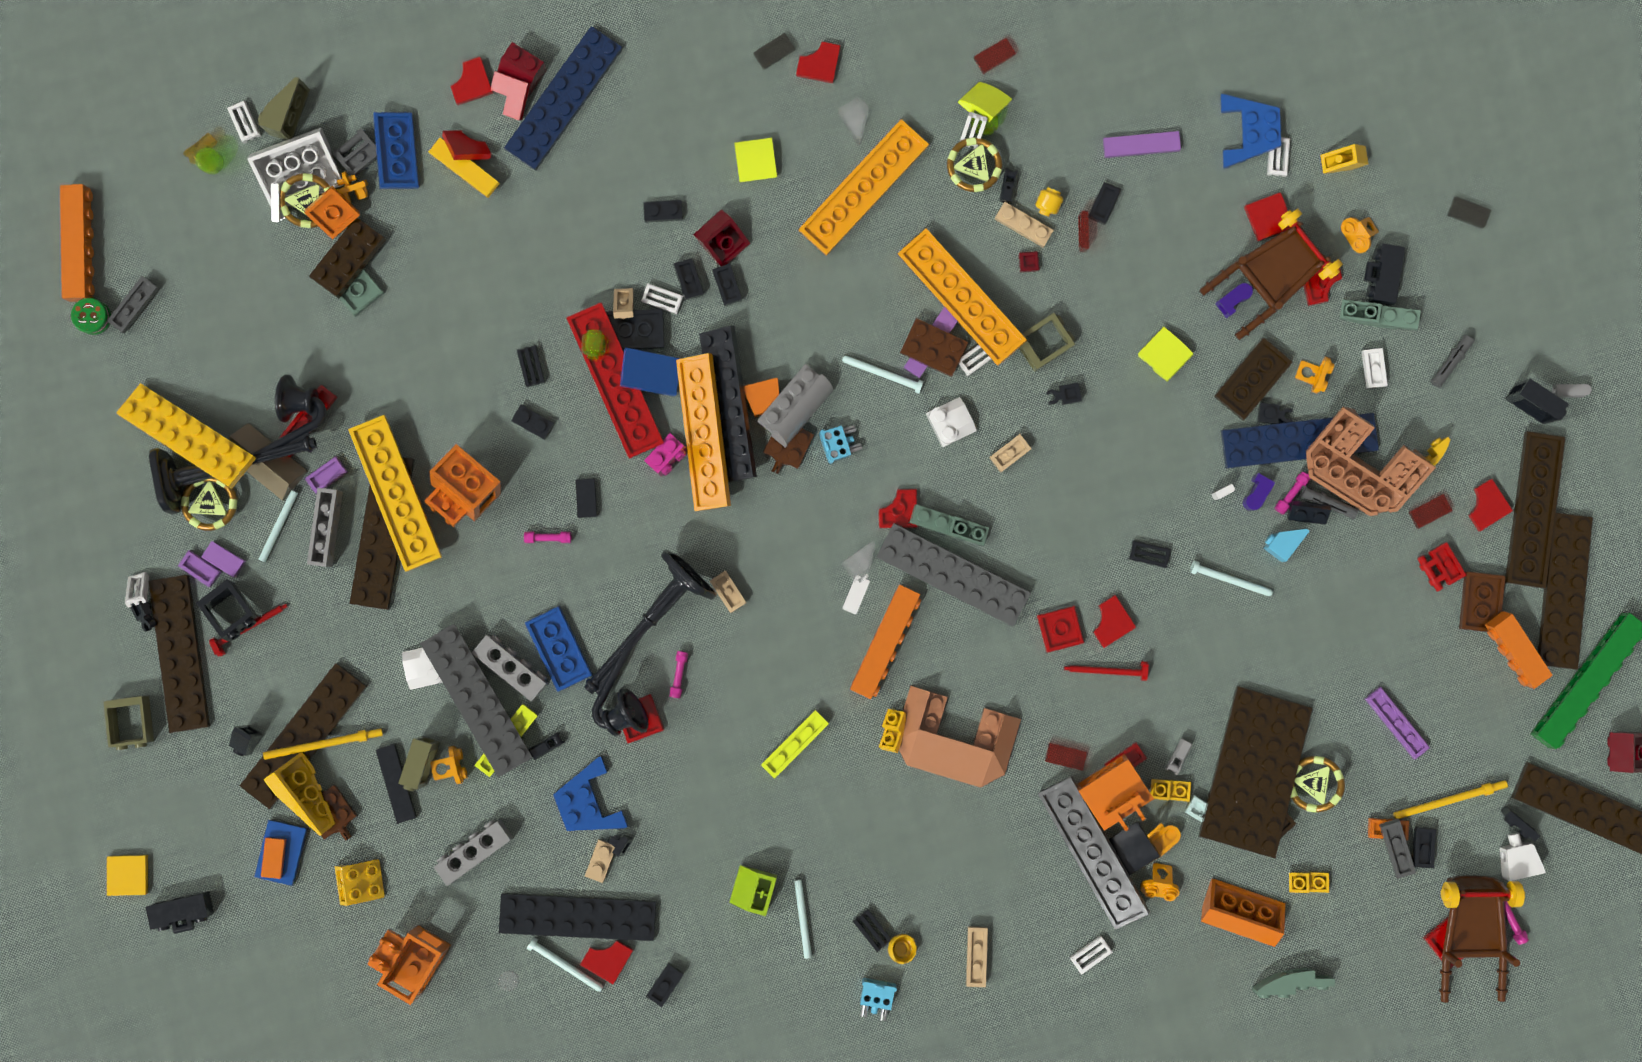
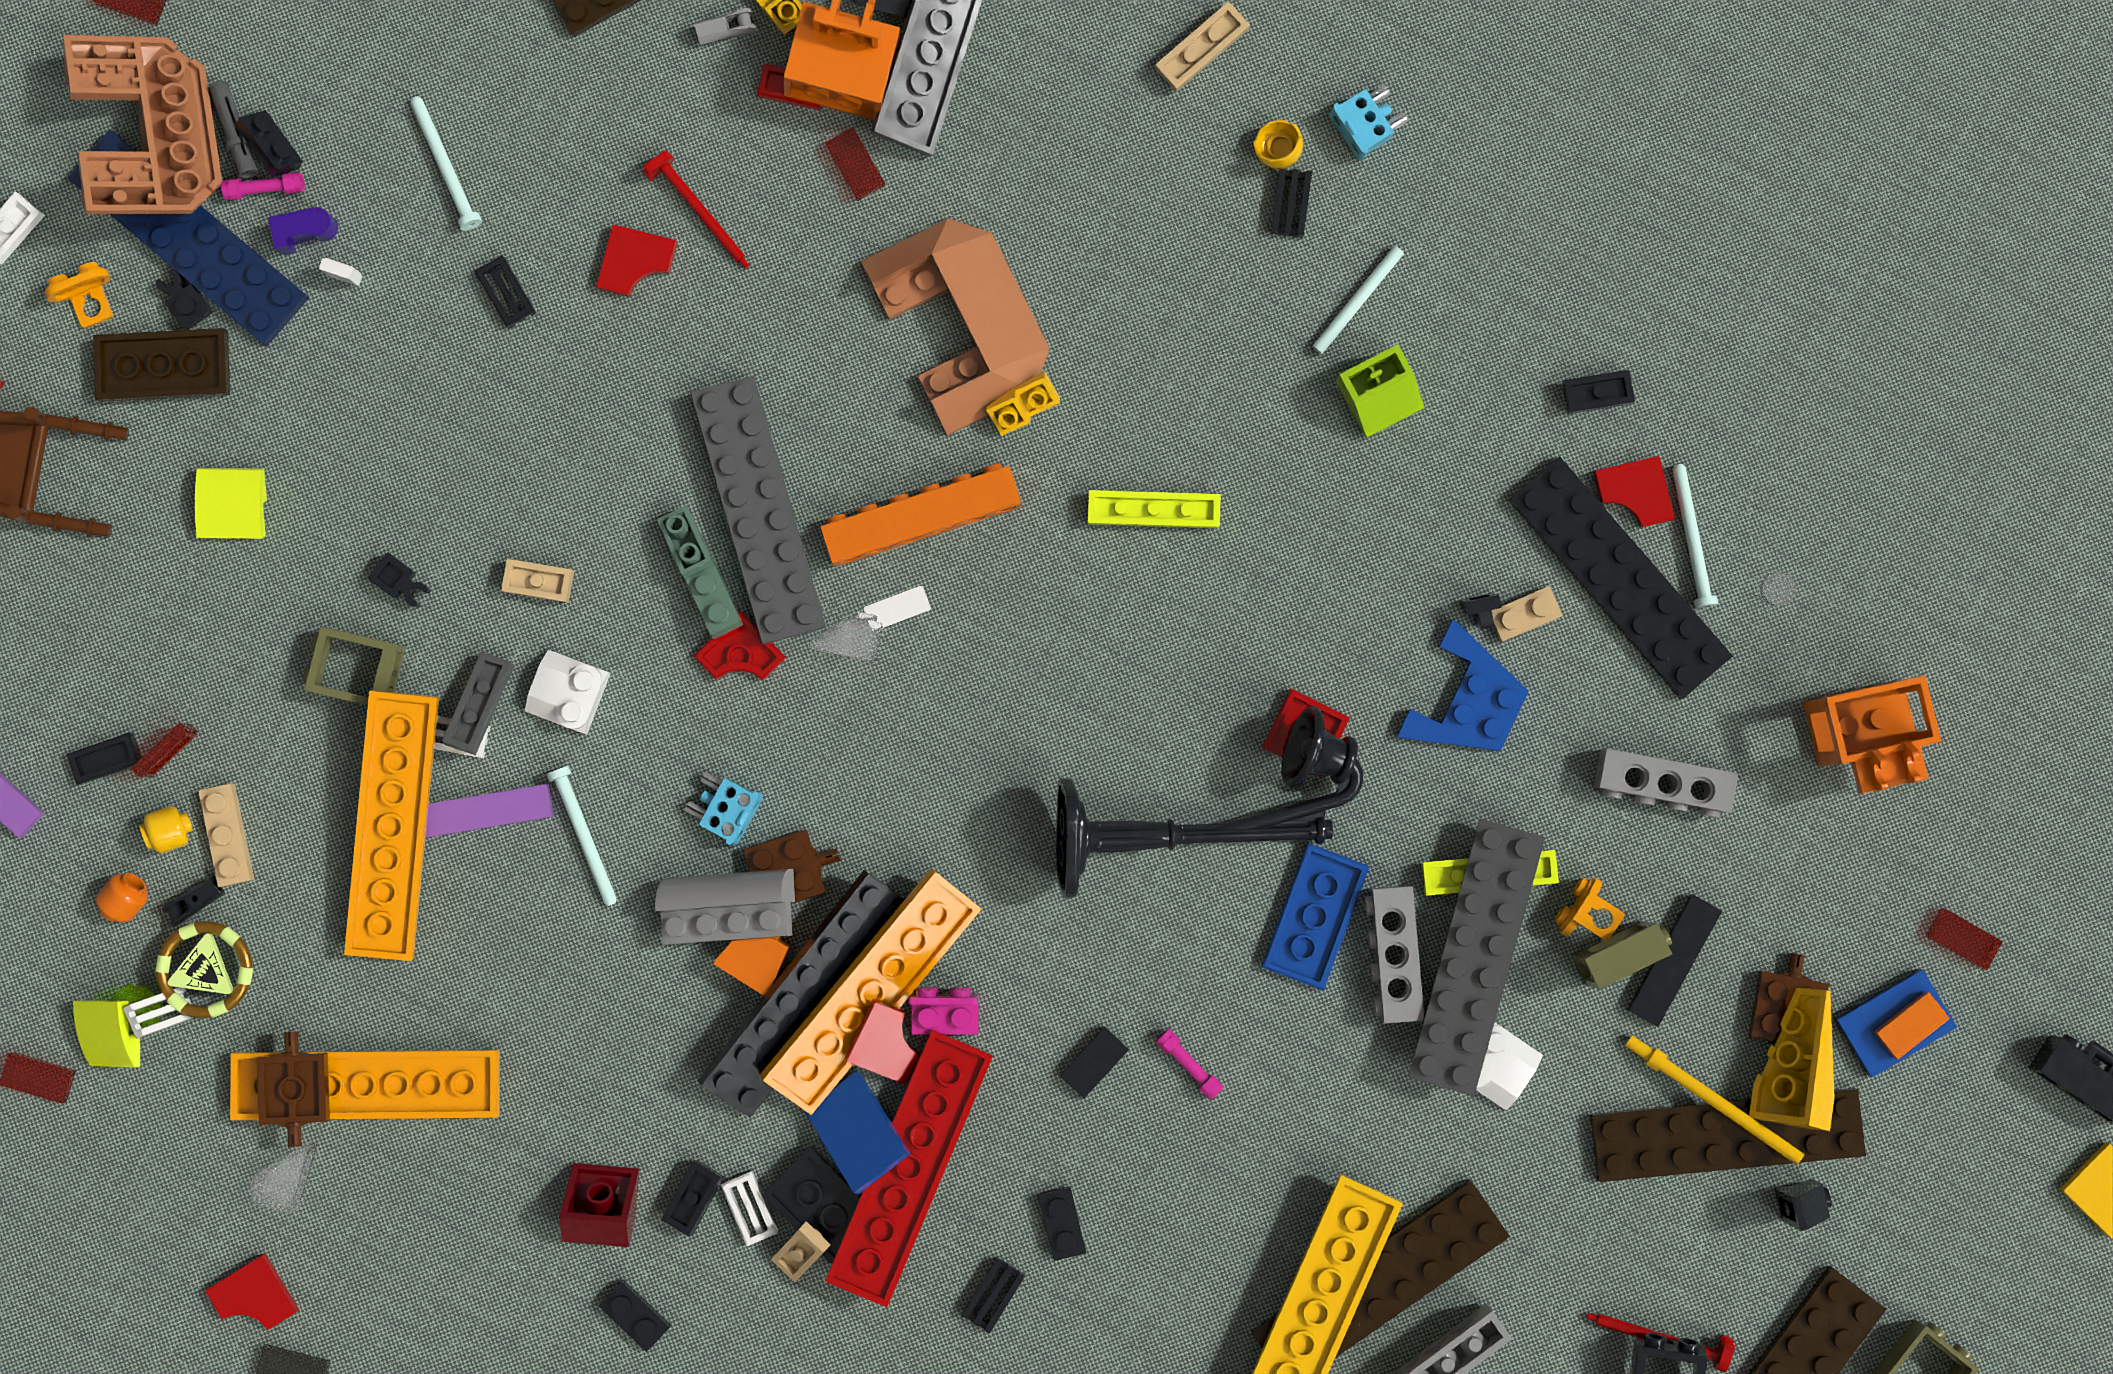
camera: 125 degrees left, 0 degrees up
(287, 916) = (1964, 939): none -> clear red tile
(359, 882) = (1838, 888): yellow bracket -> none
(461, 487) = (1229, 1234): orange piece -> none
(544, 747) = (1453, 817): black bar -> none
(593, 344) = (887, 1238): clear neon green head -> none
(676, 690) = (1227, 719): dark pink bar -> none
(677, 416) = (881, 1044): none -> tile
(727, 285) = (654, 1141): black plate -> none
(728, 591) = (1043, 770): tan plate -> none
(755, 159) = (457, 1258): neon yellow slope -> none
(889, 156) = (293, 1089): none -> reddish brown plate
(933, 347) = (491, 801): reddish brown plate -> none
(980, 380) = (478, 703): none -> dark grey plate
(1028, 261) = (269, 784): dark red tile -> none
(1037, 158) = (122, 897): none -> orange head
(1060, 629) = (702, 315): red tile -> none
(1239, 294) = (68, 481): dark purple leg -> none
(1283, 544) = (336, 136): medium azure slope -> none
(1437, 450) = (40, 57): yellow slope -> none

